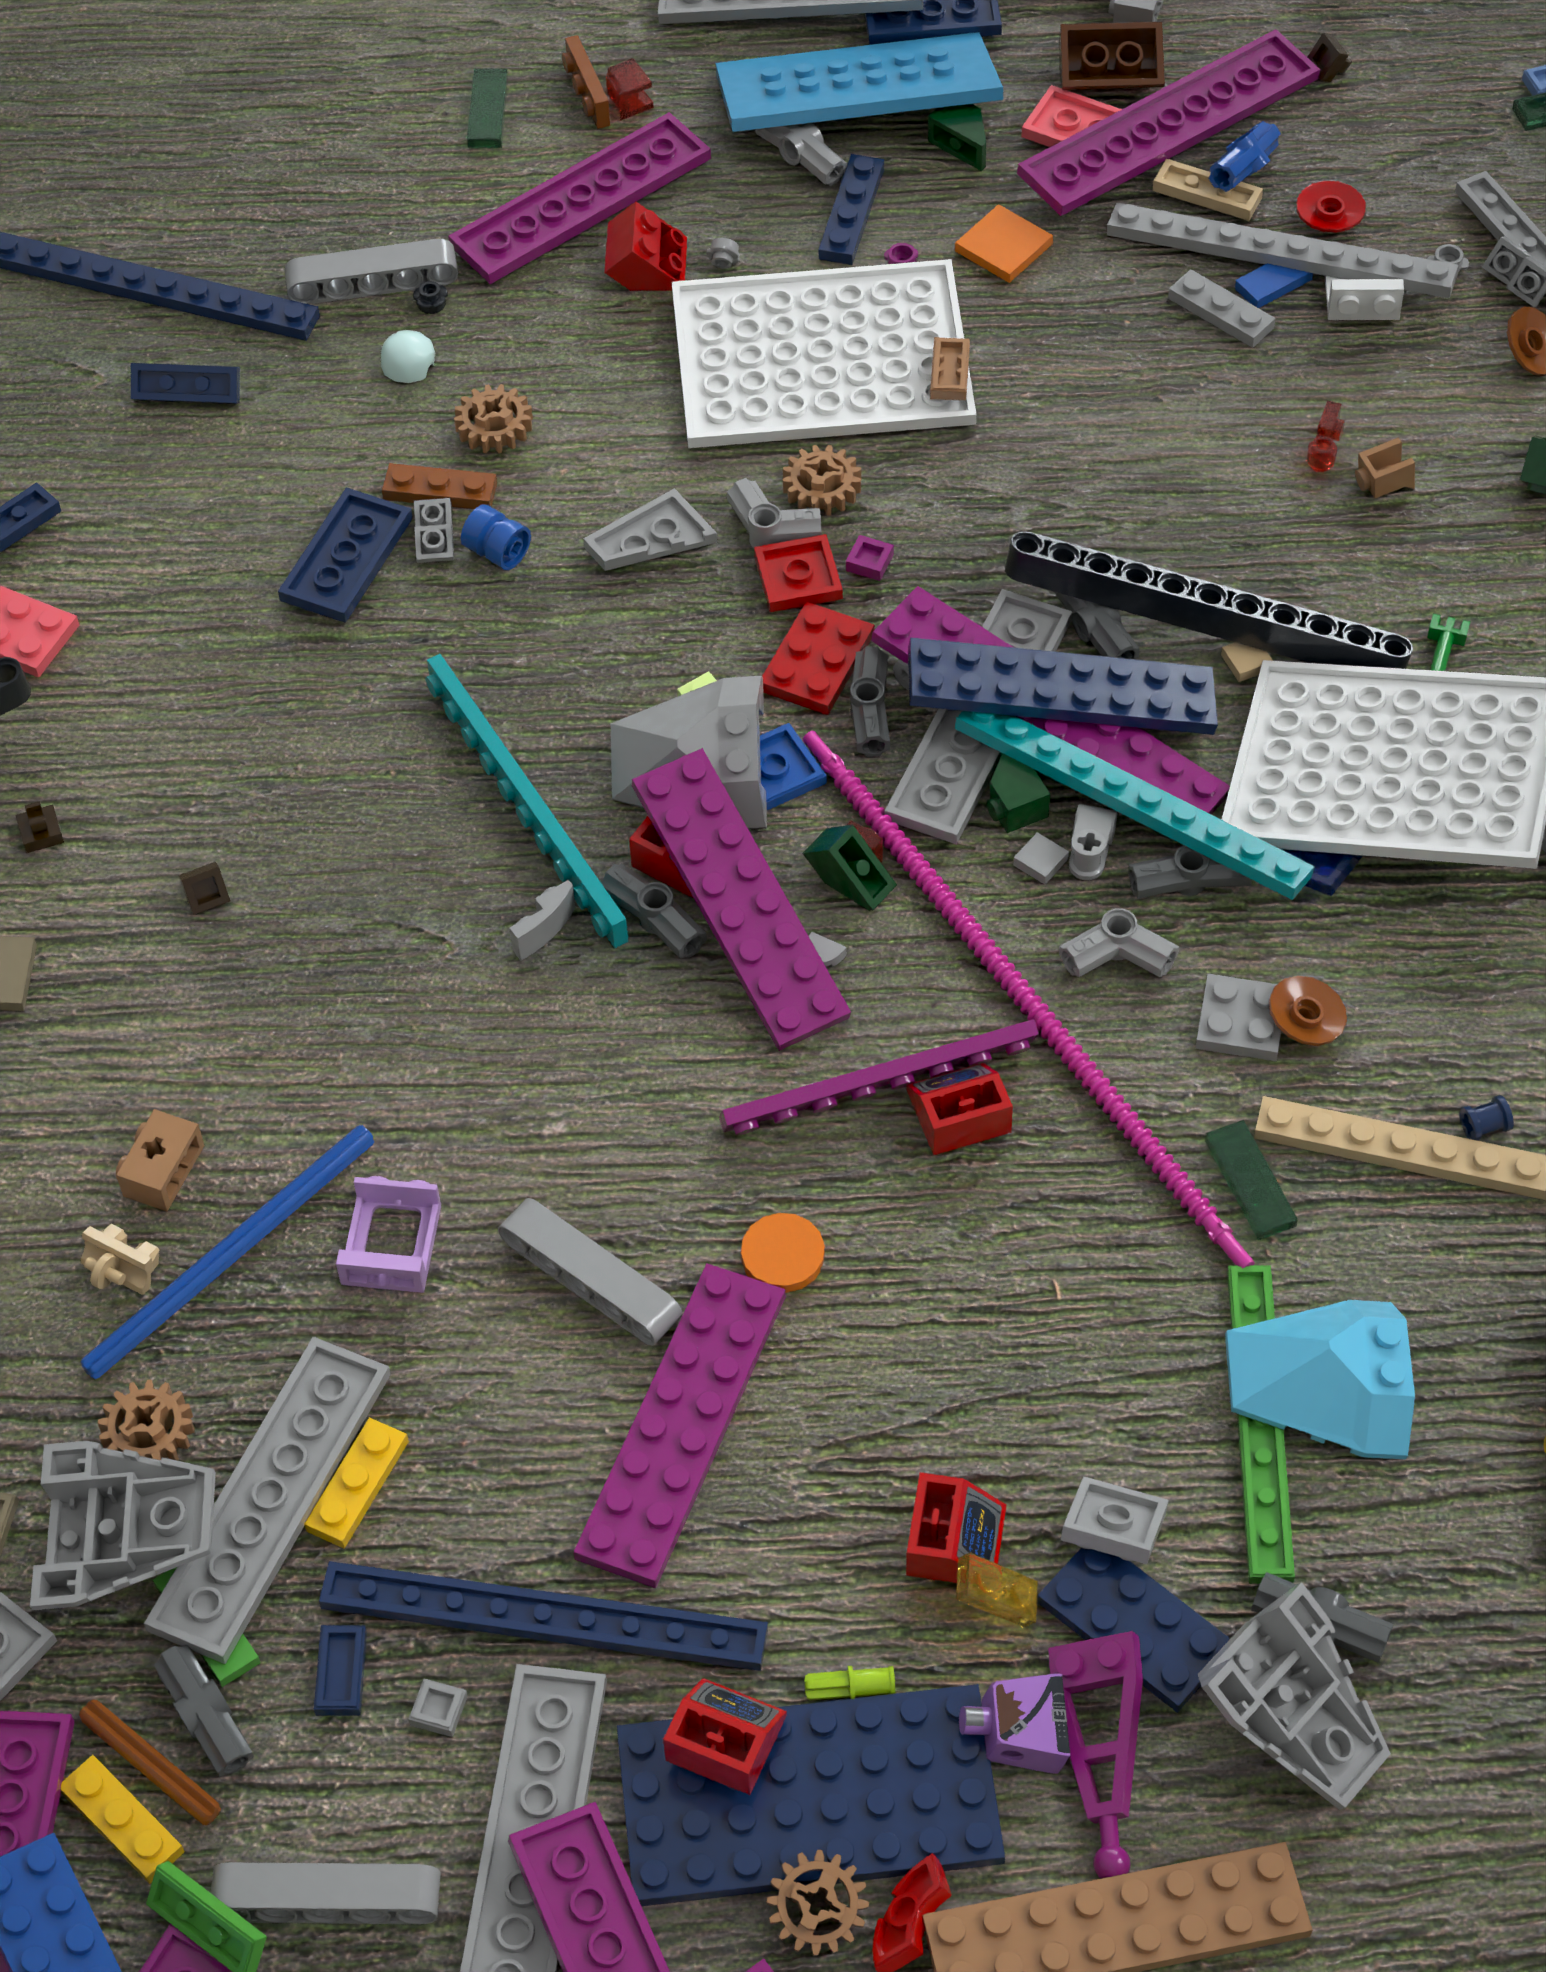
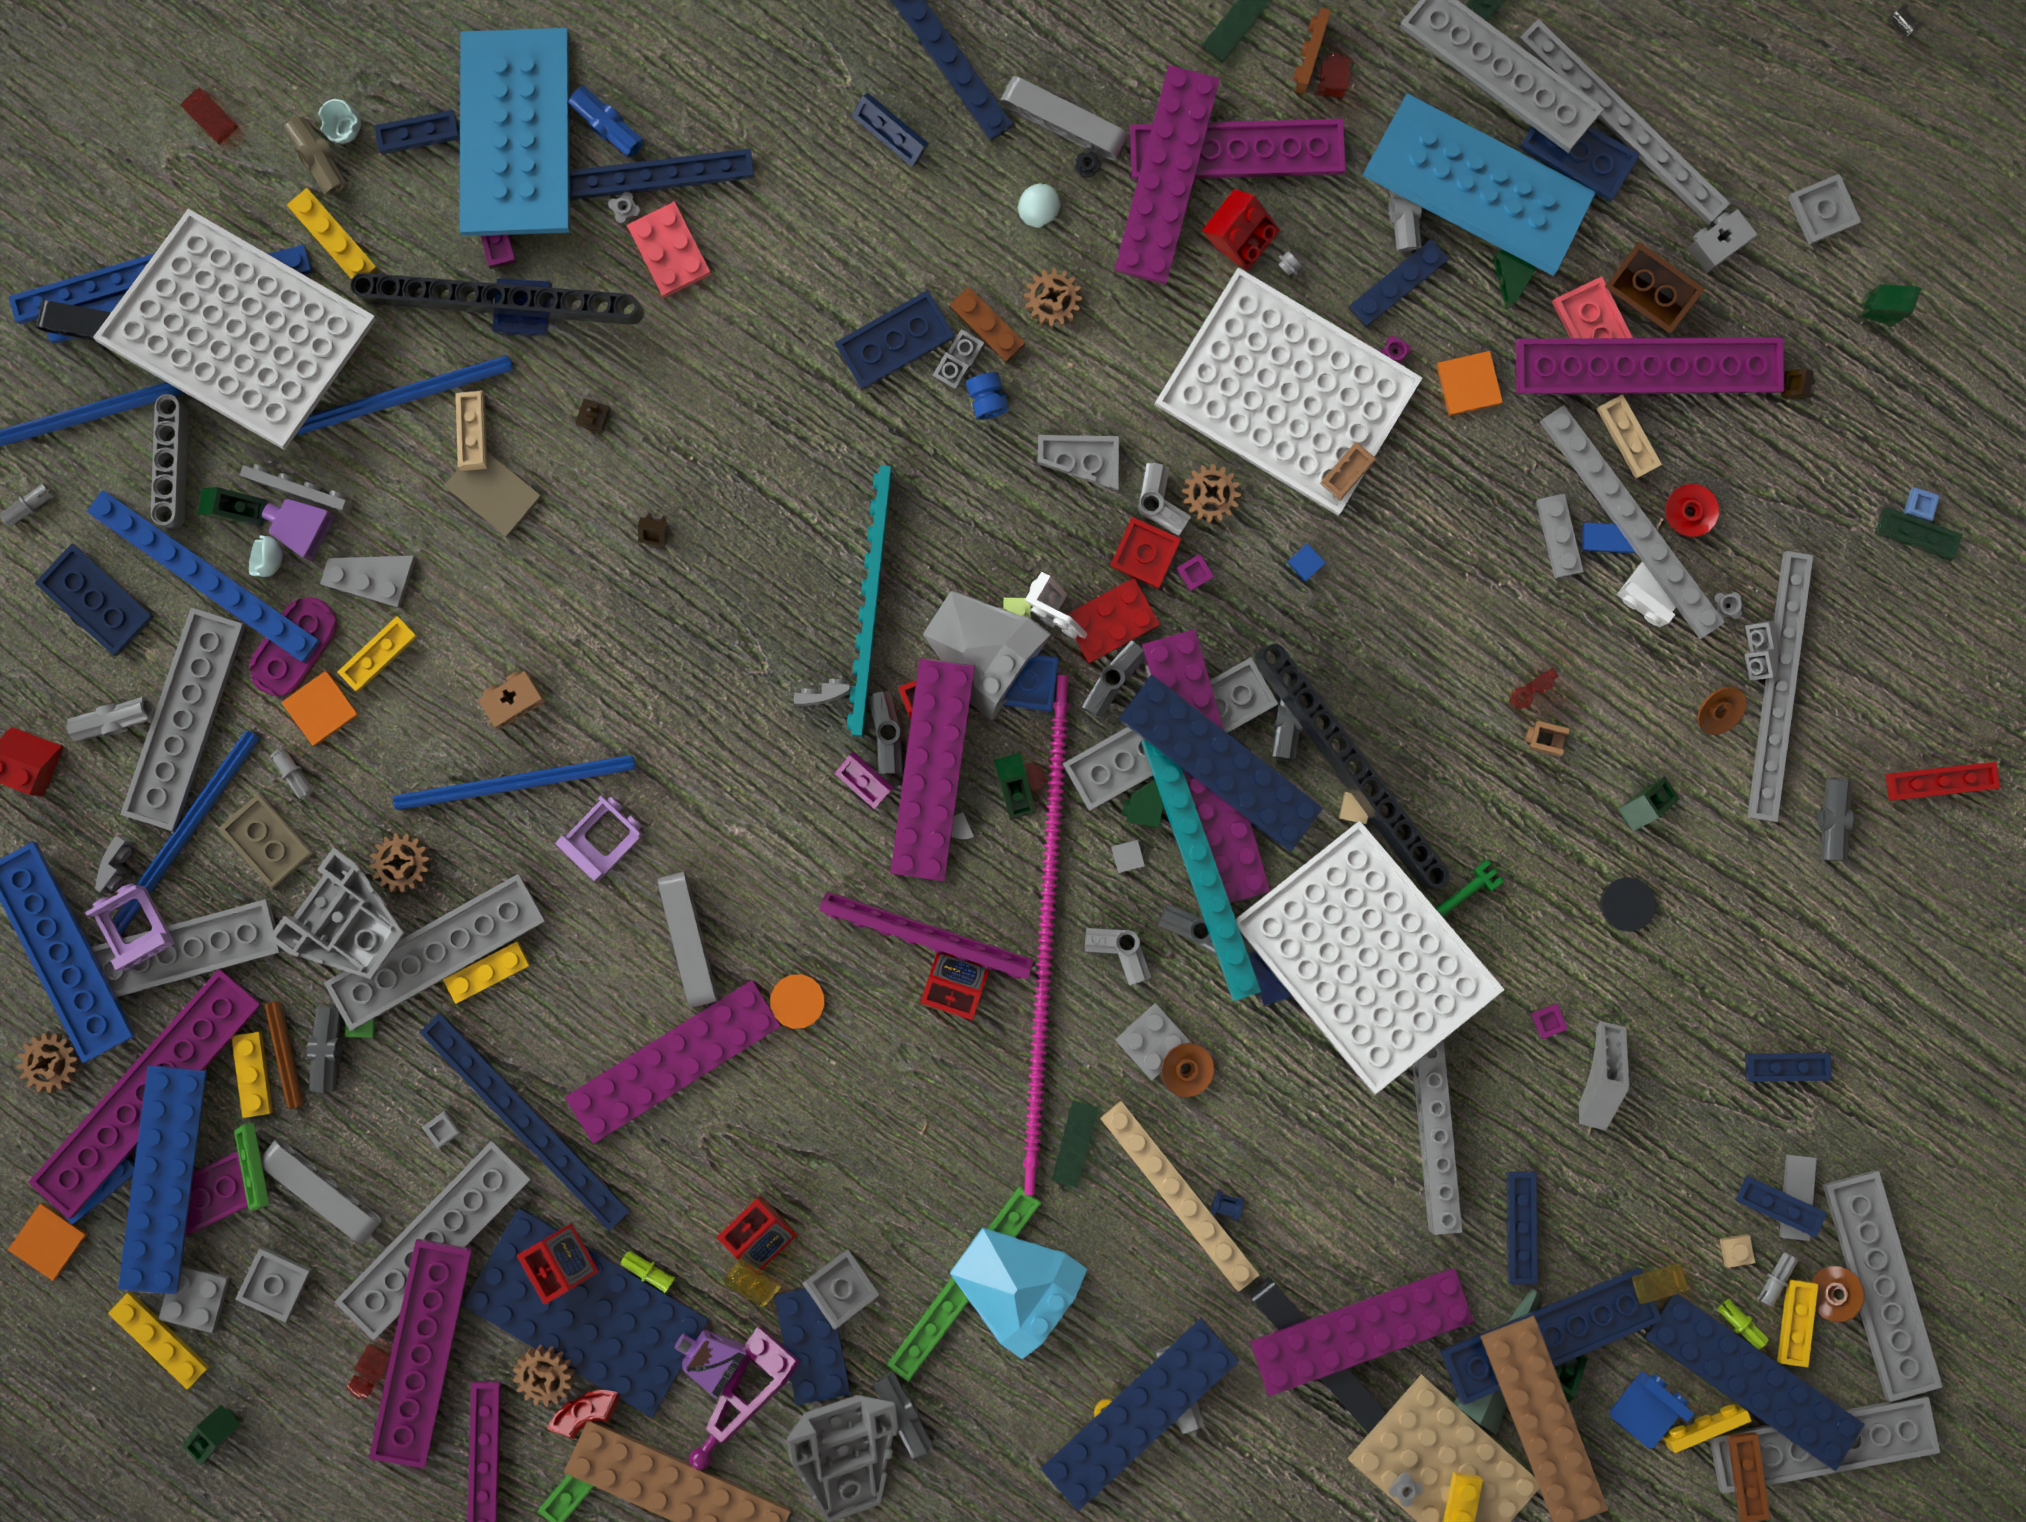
camera: 30 degrees right, 30 degrees up
(116, 1262) = (456, 758): tan hips -> none
(340, 1670) = (408, 1073): dark blue tile -> none
(527, 251) = (1167, 174): none -> magenta plate
(667, 971) = (864, 780): none -> magenta plate
(757, 657) = (1046, 599): none -> white bracket
(981, 482) = (1306, 562): none -> blue tile
(1091, 840) = (1166, 864): light grey piece -> none
(1245, 156) = (1671, 432): blue piece -> none

